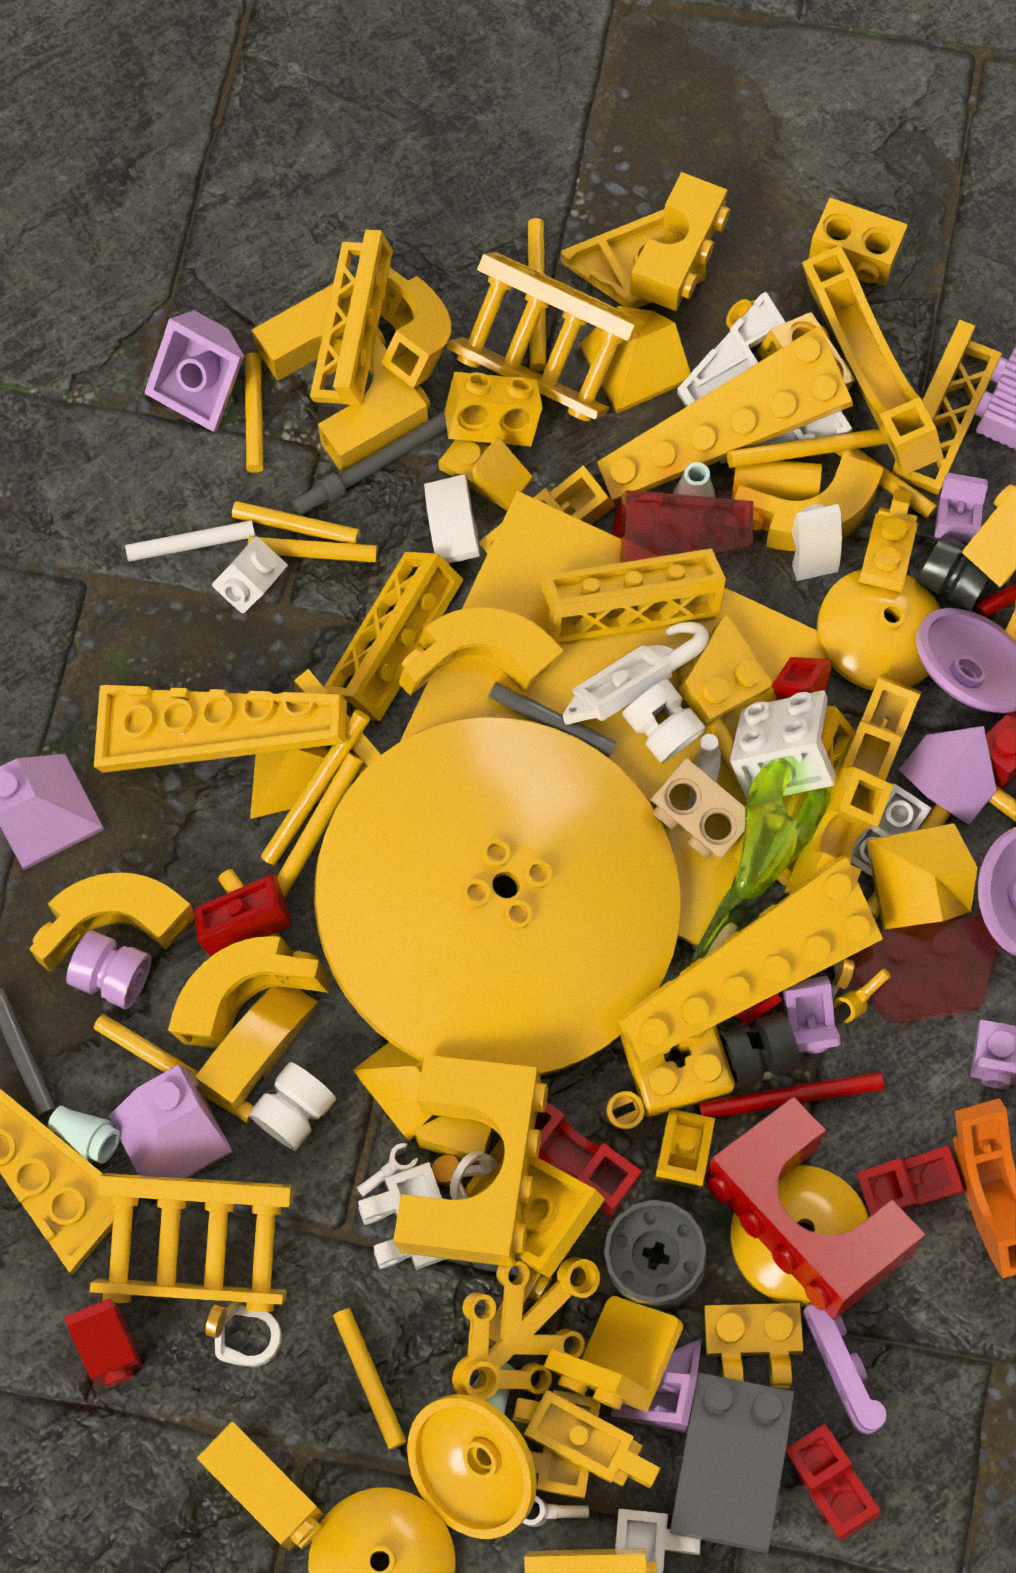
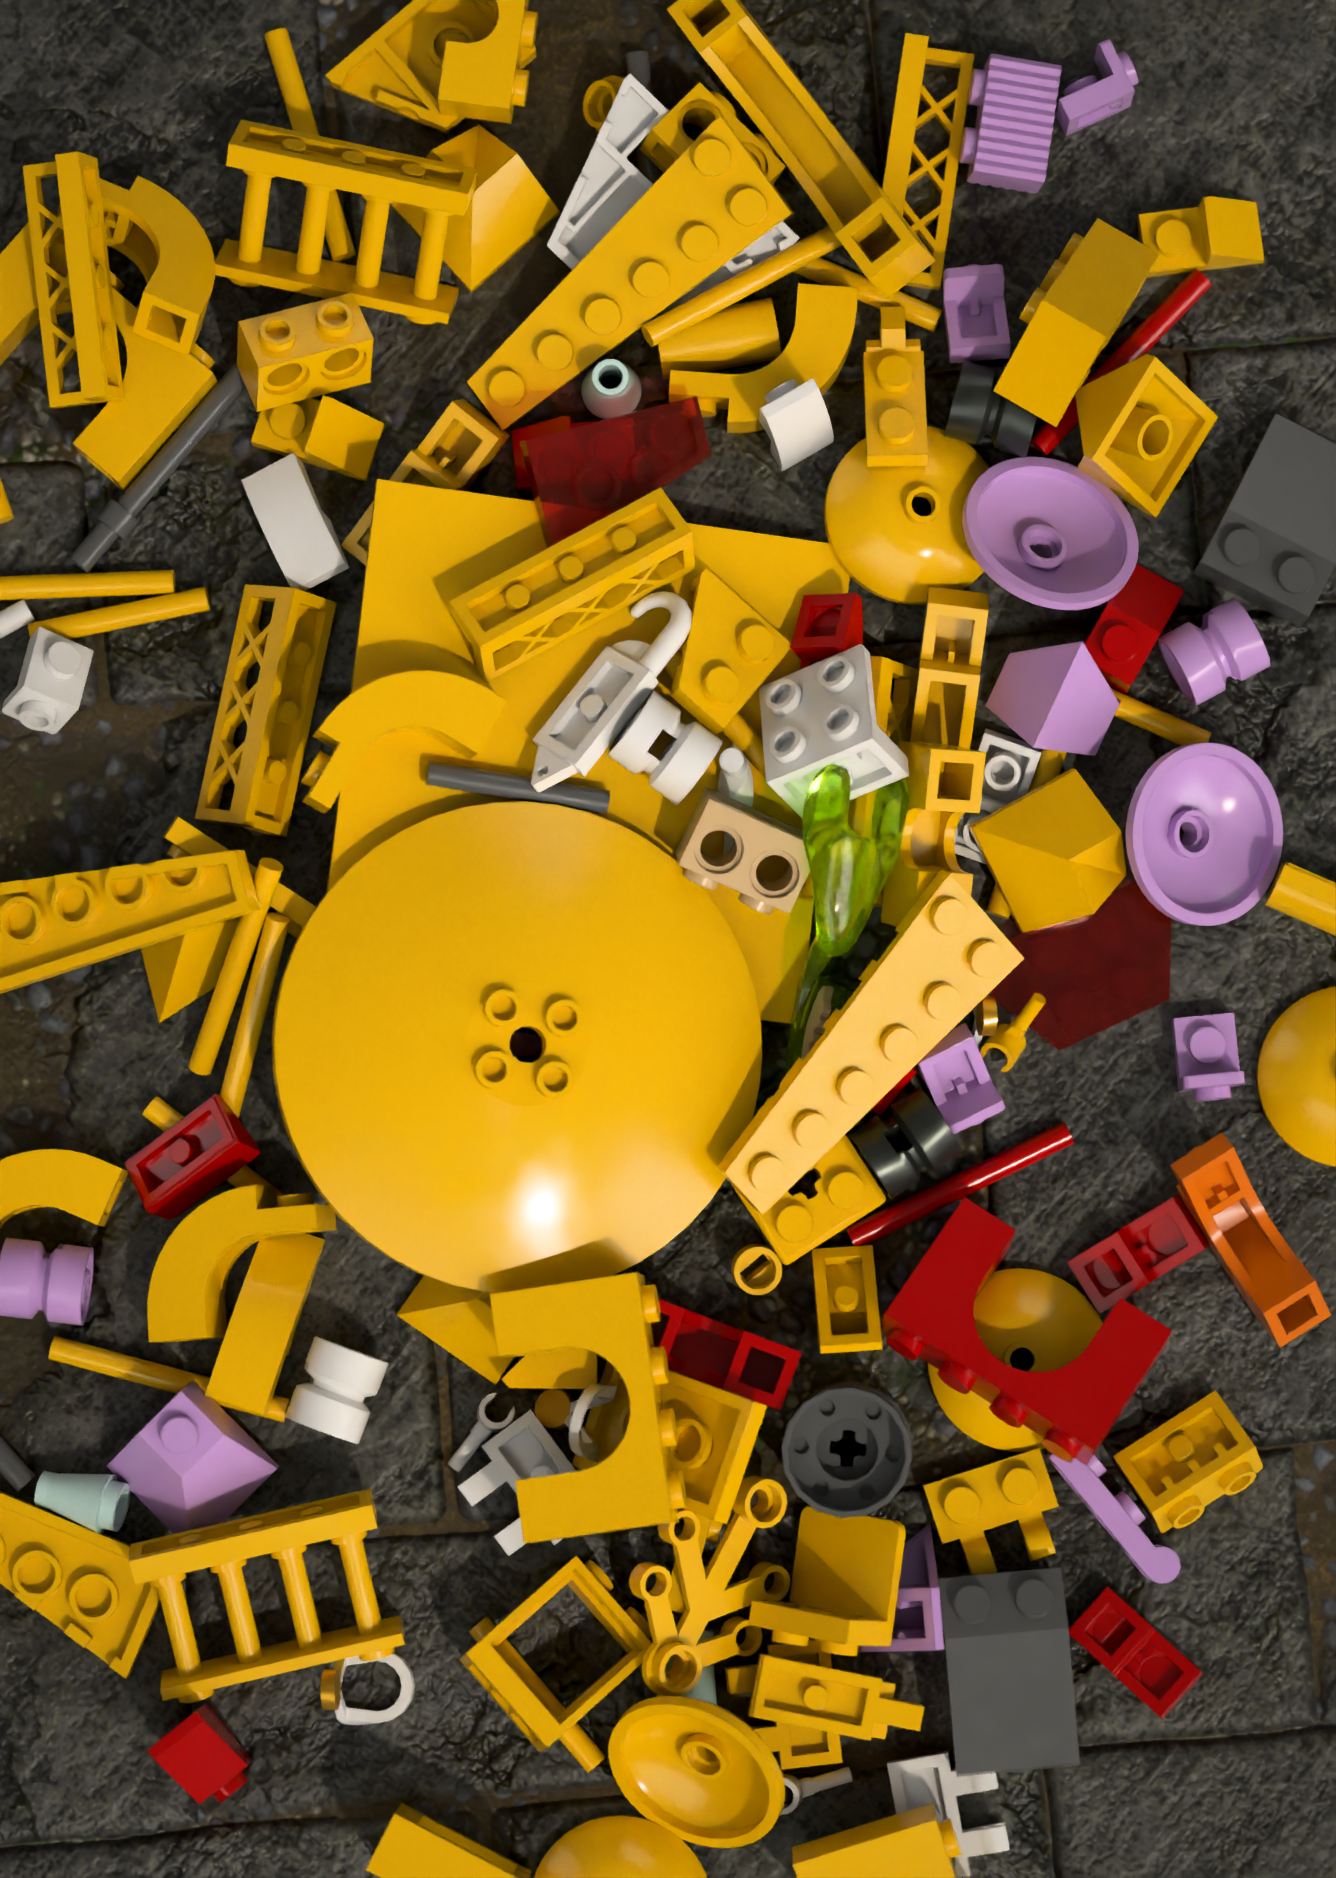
camera: 15 degrees left, 15 degrees up
(348, 1360) = (512, 1694): none -> yellow window
(912, 1348) = (1190, 1463): none -> yellow bracket

